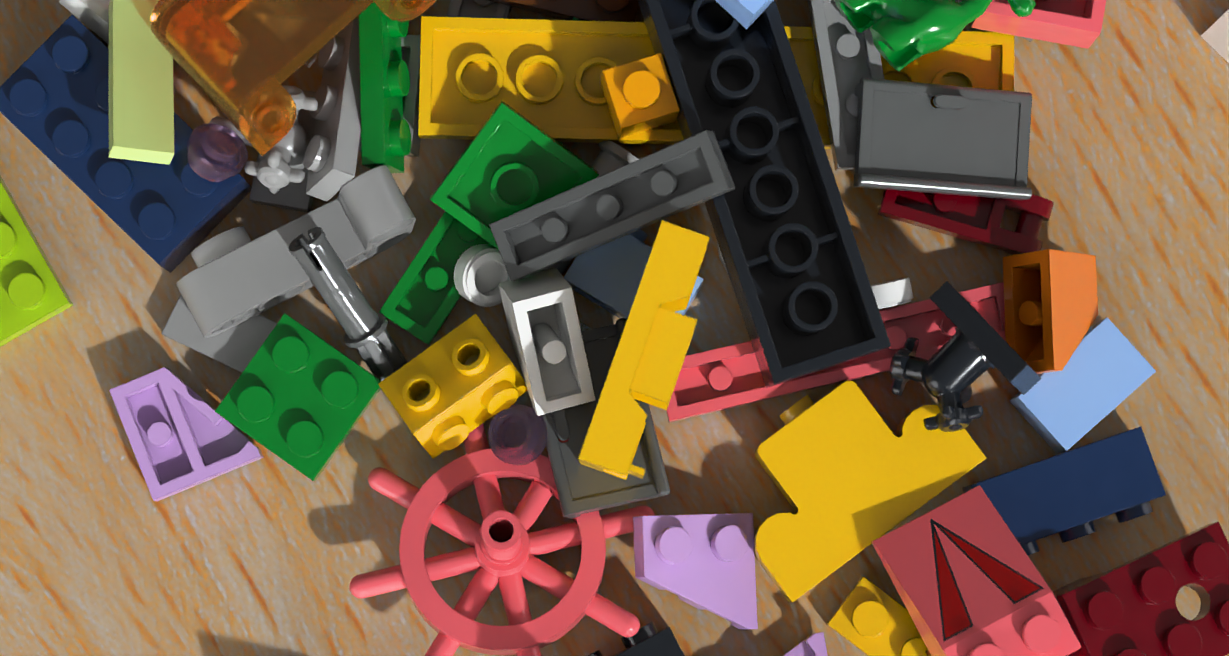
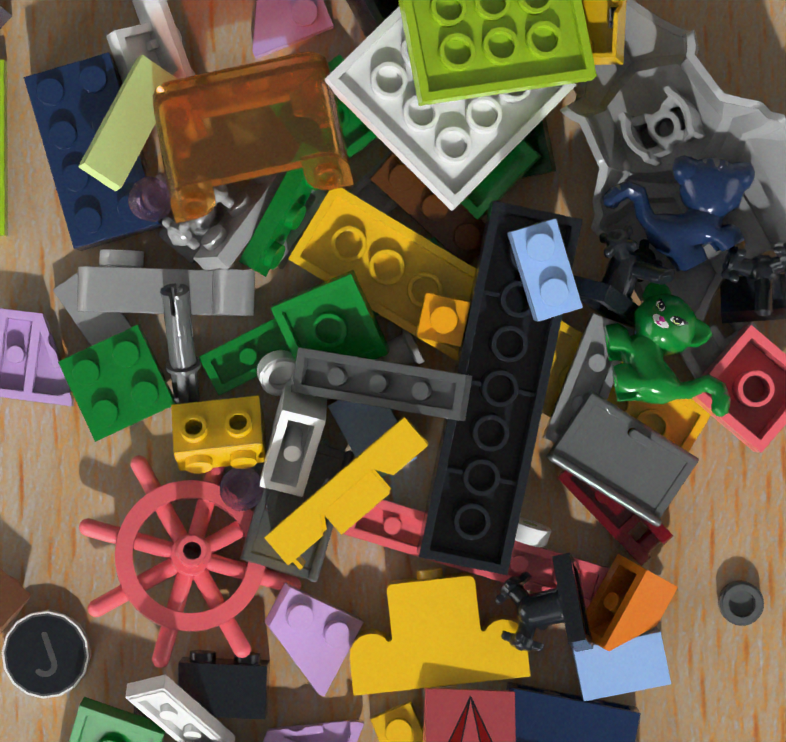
camera: 25 degrees right, 5 degrees up
(1178, 237) = (741, 603): none -> dark grey tile

